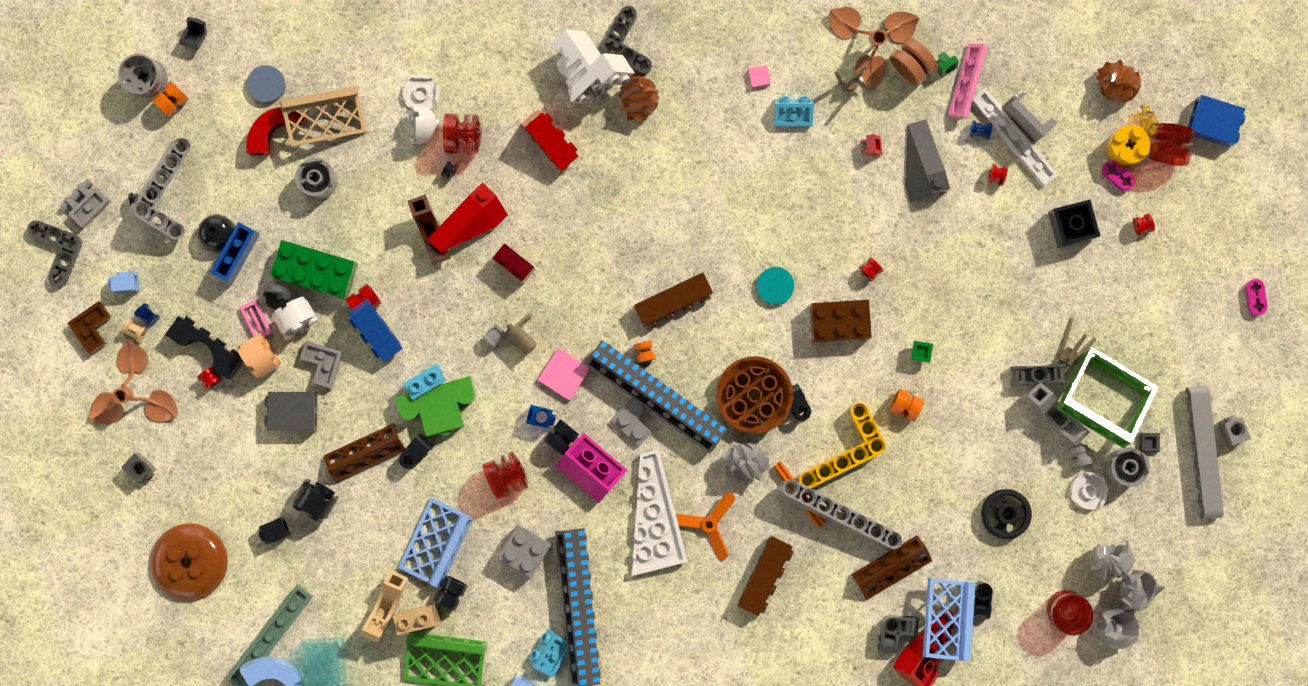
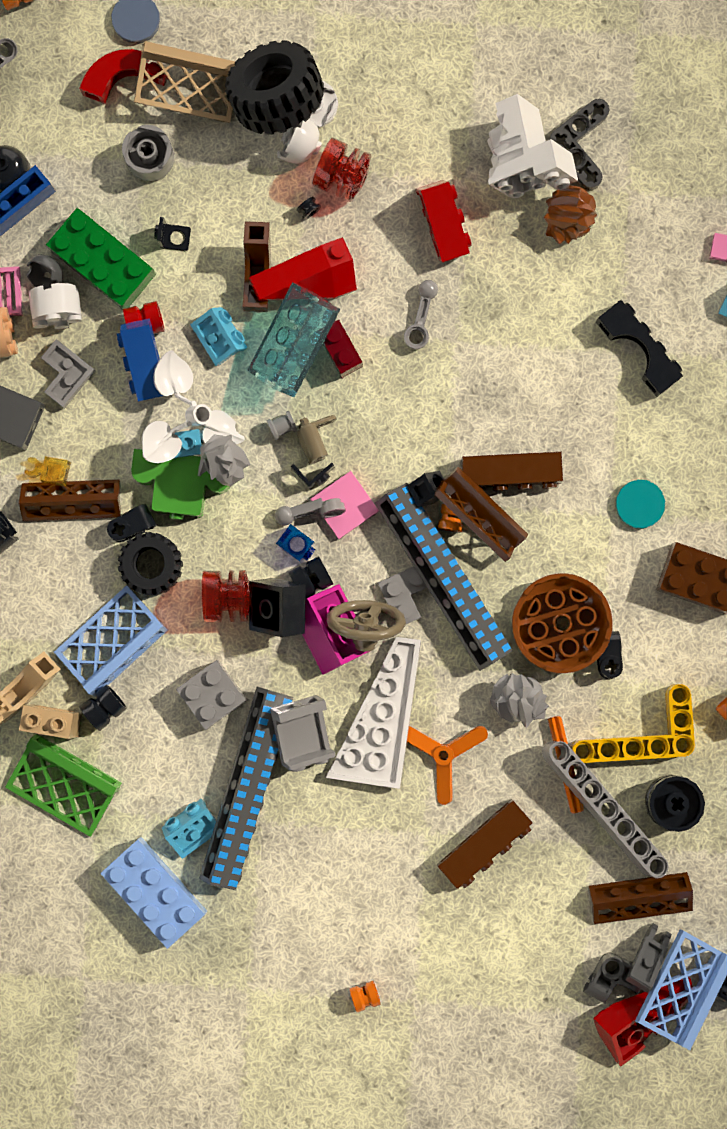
camera: 30 degrees right, 0 degrees up
(341, 437) = (50, 471): none -> clear yellow plate
(351, 231) = (163, 233): none -> black bracket
(400, 106) = (274, 87): none -> black tyre
(412, 384) = (158, 440): none -> white plant
(422, 289) = (218, 335): none -> medium azure bracket
(426, 467) = (135, 548): none -> black tyre
(463, 379) = (223, 460): none -> light grey hair
(477, 271) = (293, 340): none -> clear light blue brick
(538, 363) = (320, 479): none -> black bracket
(546, 468) = (277, 607): none -> black brick
(553, 382) = (330, 508): none -> light grey piece
(560, 194) = (428, 290): none -> light grey piece
(601, 551) = (302, 733): none -> light grey panel
(614, 456) = (365, 627): none -> dark tan piece
(619, 337) = (425, 487): none -> black brick
(664, 339) = (482, 511): none -> reddish brown fence
(708, 161) = (621, 323): none -> black arch
(898, 493) = (689, 803): none -> black wheel
(914, 609) = (648, 959): none -> dark grey hinge

